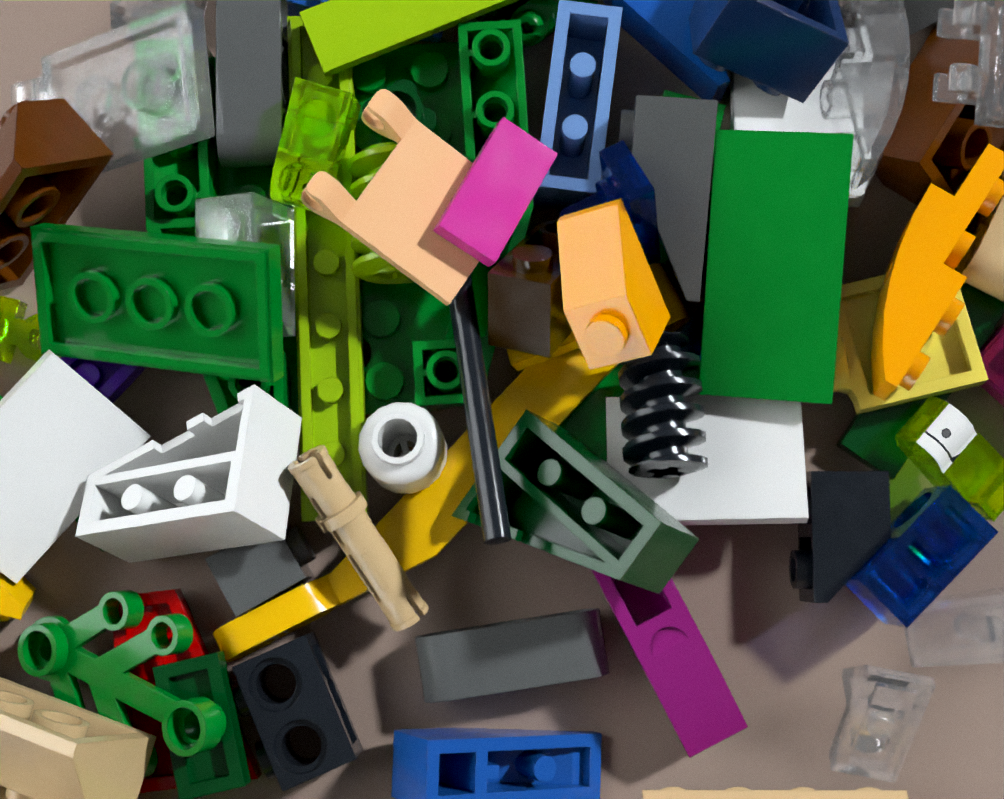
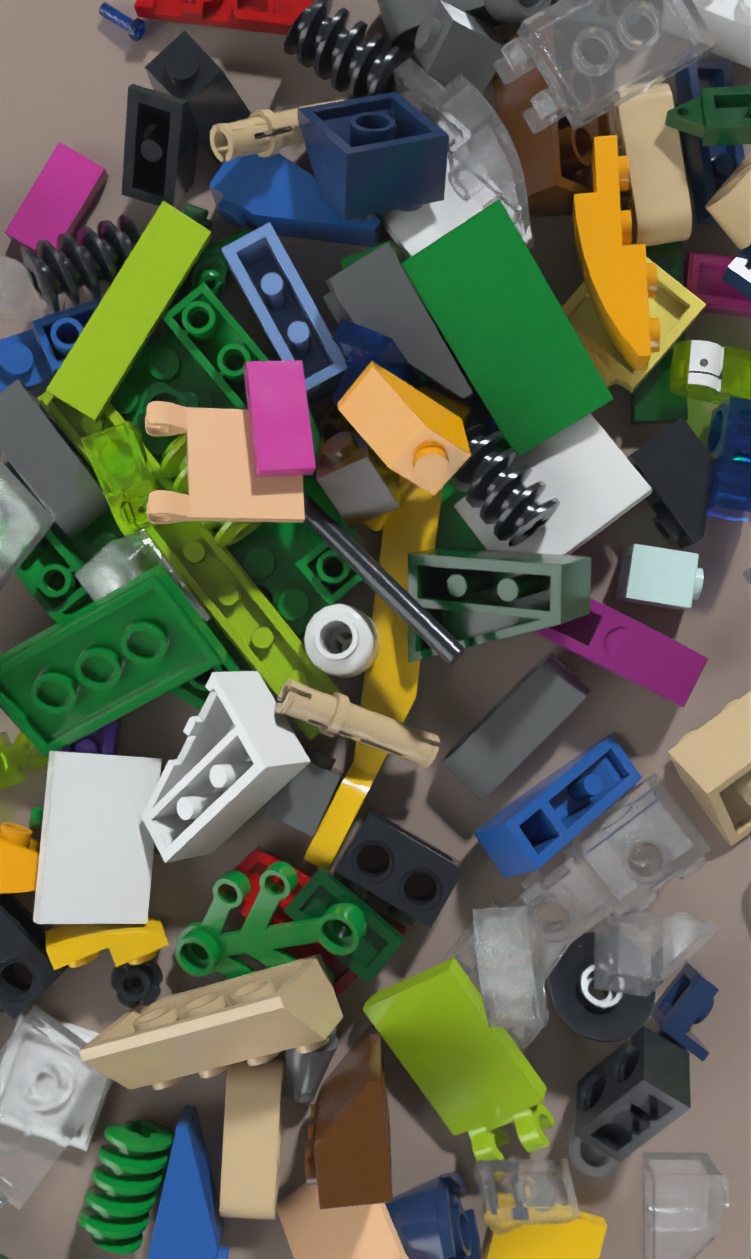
camera: 35 degrees left, 5 degrees up
(757, 612) = (659, 577): none -> light aqua brick

